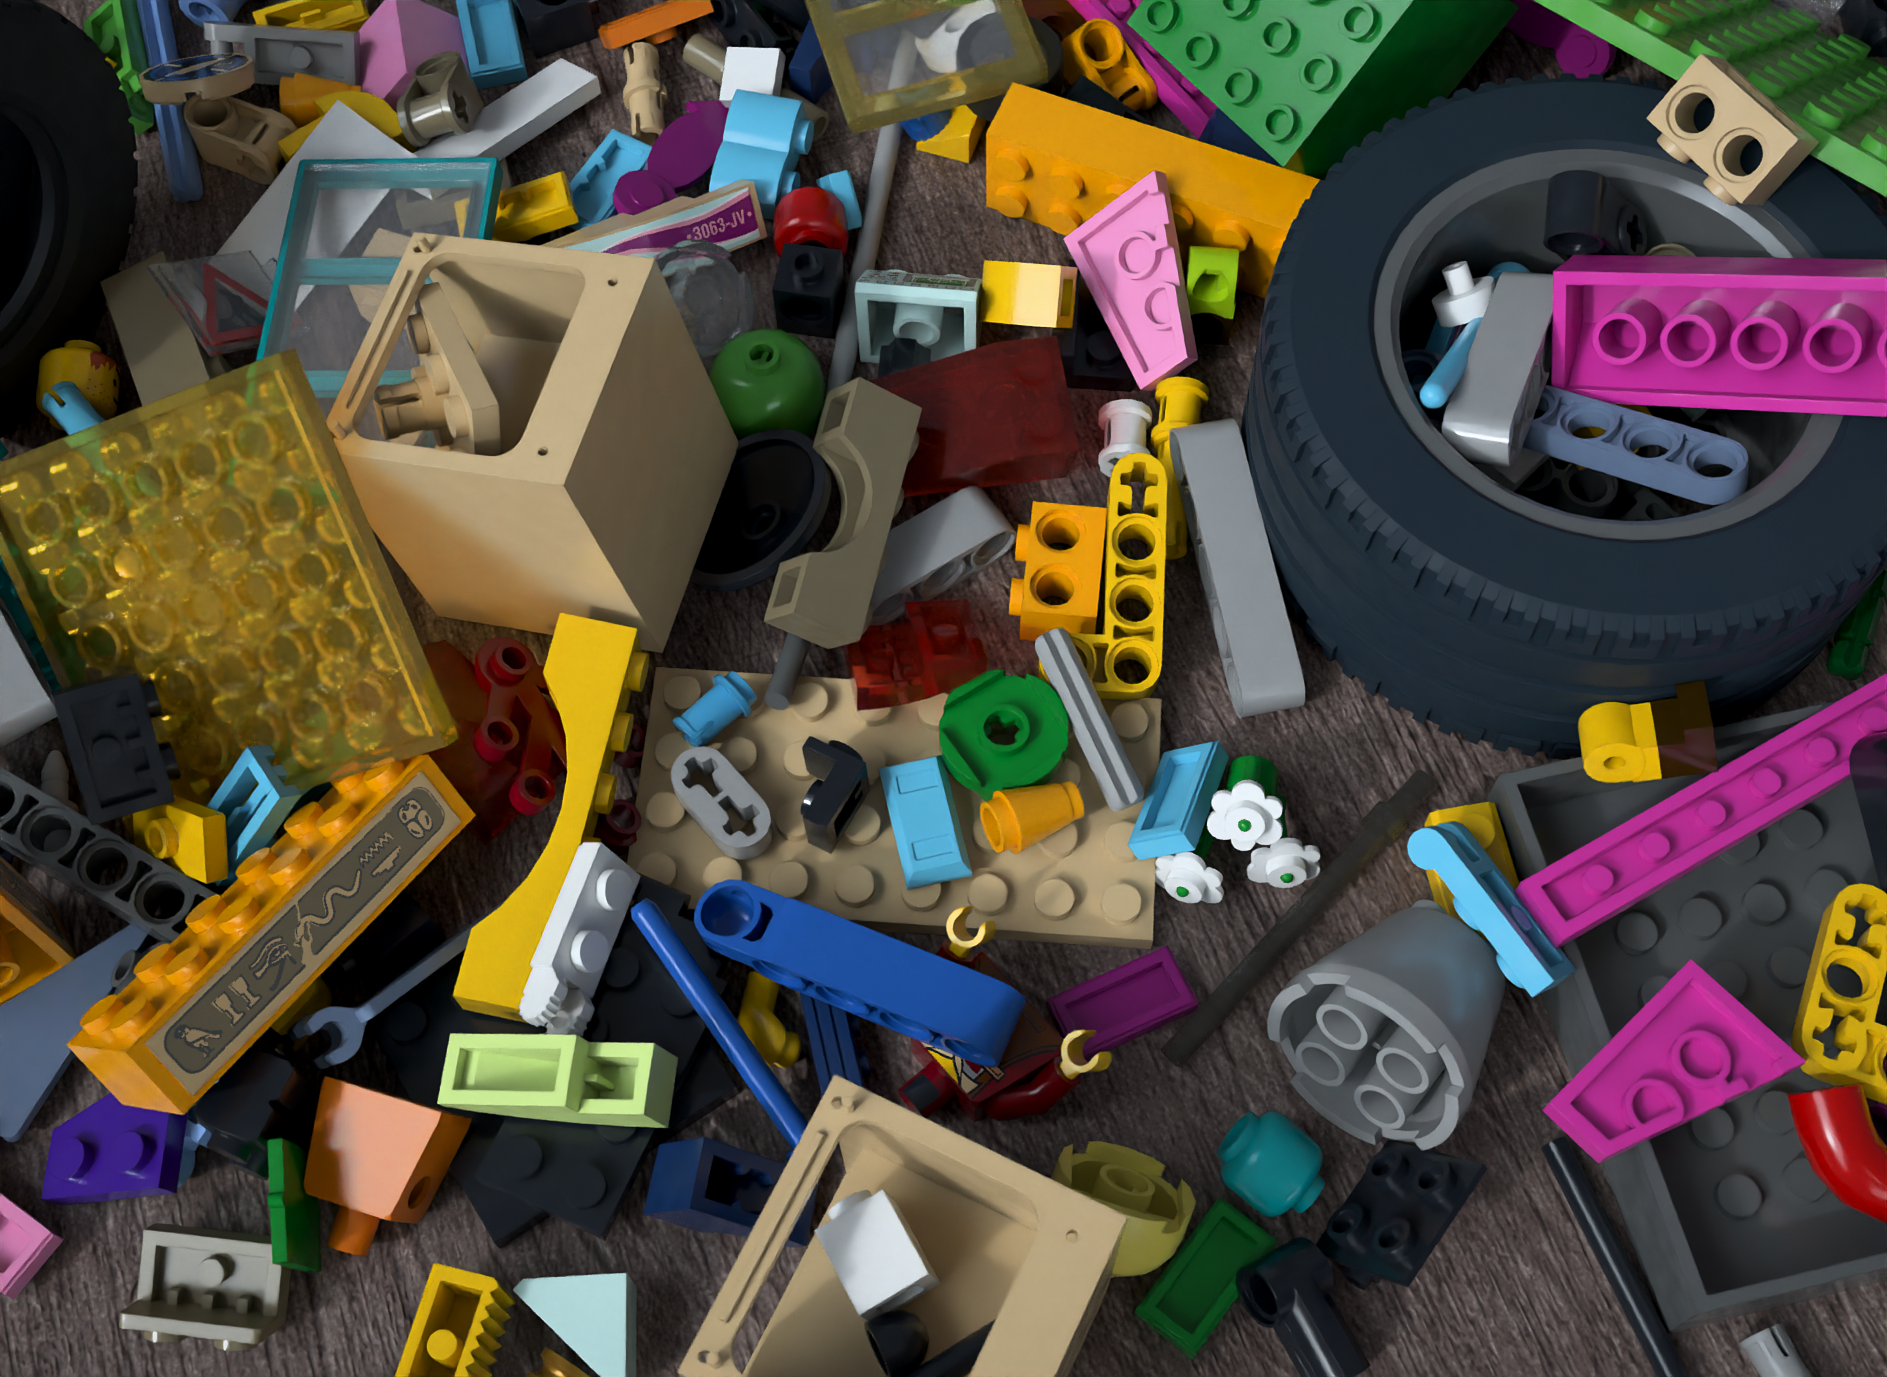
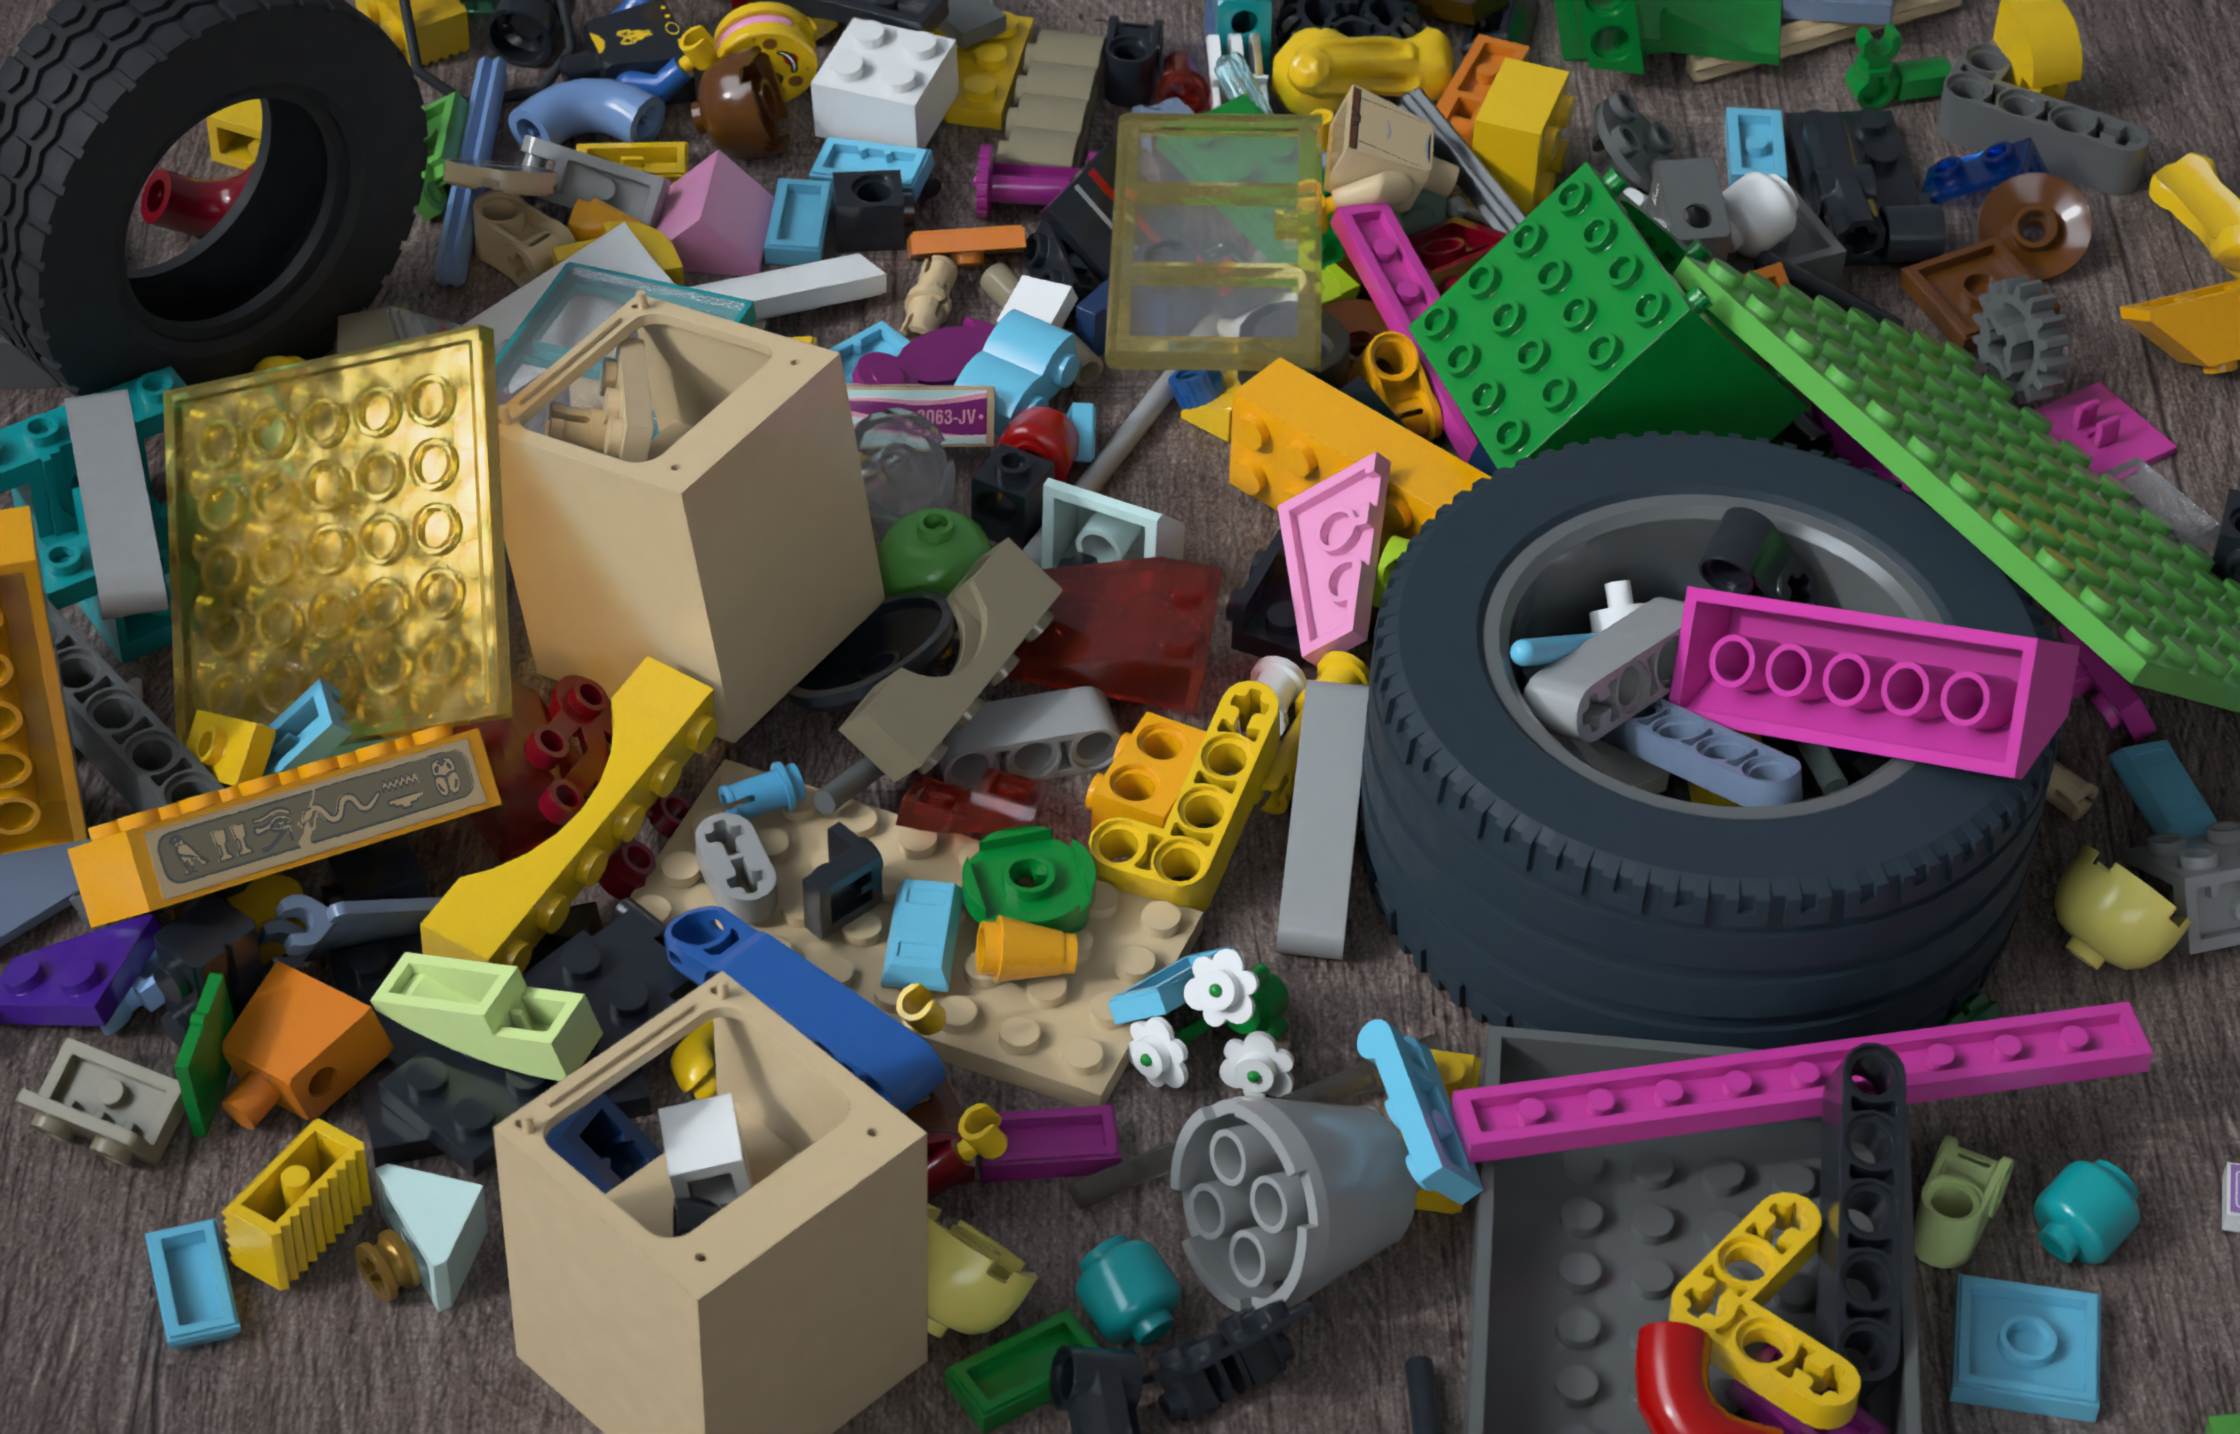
camera: 15 degrees right, 20 degrees down
(115, 744) = (204, 646): black bracket -> none
(439, 100) = (720, 249): dark tan piece -> none
(578, 941) = (557, 910): white hinge -> none
(720, 1022) = (647, 994): blue bar -> none
(1028, 294) = (1221, 536): yellow brick -> none
(1089, 720) = (1115, 891): light grey axle -> none
(1649, 738) = (1640, 1019): leg -> none
(1670, 1065) = (1527, 1271): dark pink wing -> none
(1739, 117) = (1903, 509): tan brick -> none

